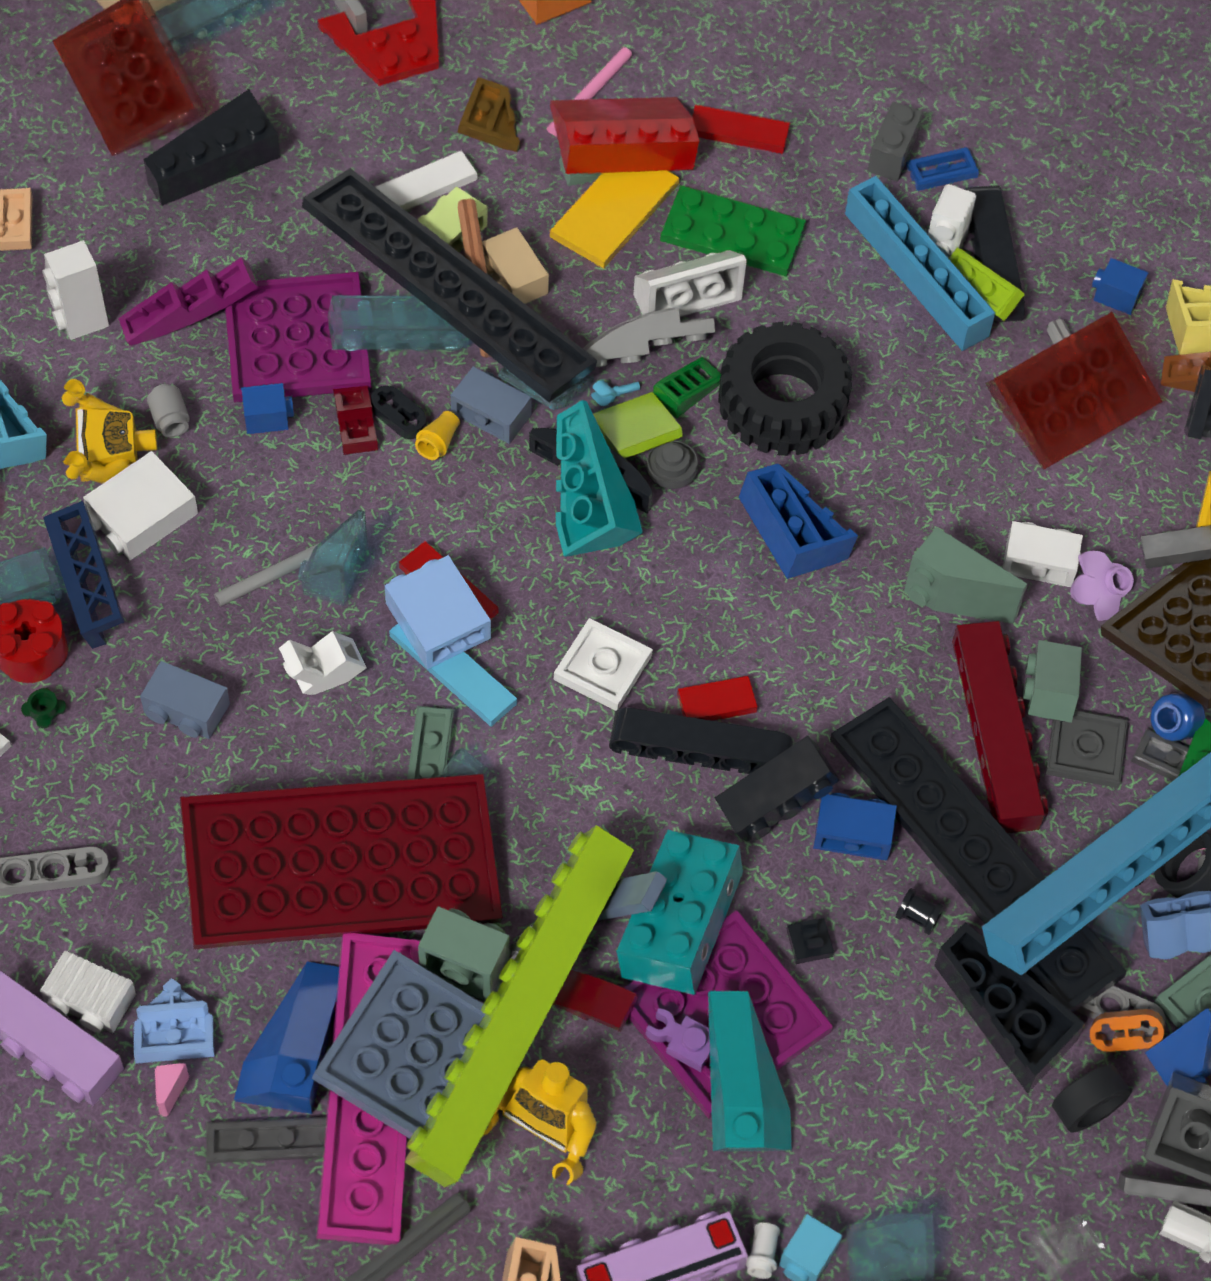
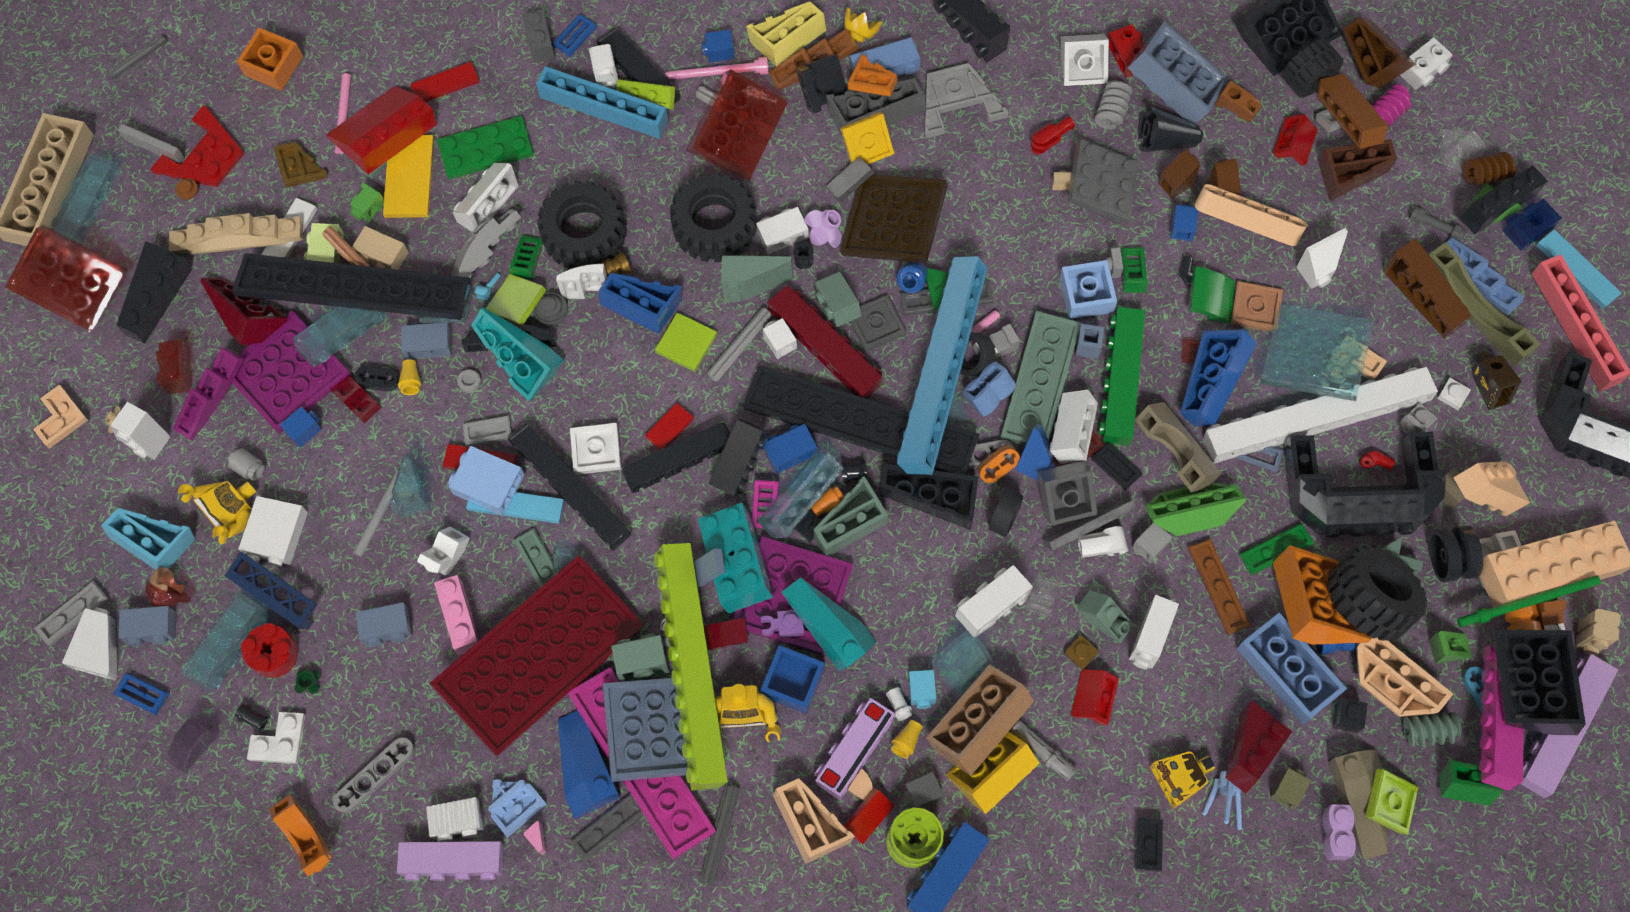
camera: 30 degrees left, 10 degrees up
(173, 248) = (175, 366): none -> clear red brick
(282, 742) = (457, 614): none -> bright pink brick
(296, 240) = (243, 316): none -> dark red wedge
(342, 66) = (186, 189): none -> dark orange plate
(360, 144) = (235, 233): none -> tan piece
(485, 558) = (487, 431): none -> light grey tile
(507, 485) = (469, 381): none -> light grey tile
(536, 690) = (568, 484): none -> black beam
(538, 206) = (366, 203): none -> bright green brick
(643, 1117) = (793, 679): none -> blue piece
(733, 449) = (578, 280): none -> white slope
(795, 463) = (617, 265): none -> pearl gold wheel
(800, 863) = (756, 504): none -> dark pink slope
(815, 611) = (686, 342): none -> lime tile
(825, 890) = (800, 495): none -> clear light blue brick
(858, 926) = (828, 501): none -> orange cone
(869, 967) = (851, 520): none -> sand green wedge
(883, 657) = (739, 344): none -> light grey axle
(941, 682) = (779, 338): none -> white brick
(967, 444) = (707, 192): none -> black tyre
(989, 1198) = (993, 600): none -> white wedge
(1052, 601) = (803, 249): none -> black bush
(1156, 340) = (759, 66): none -> bright pink piece

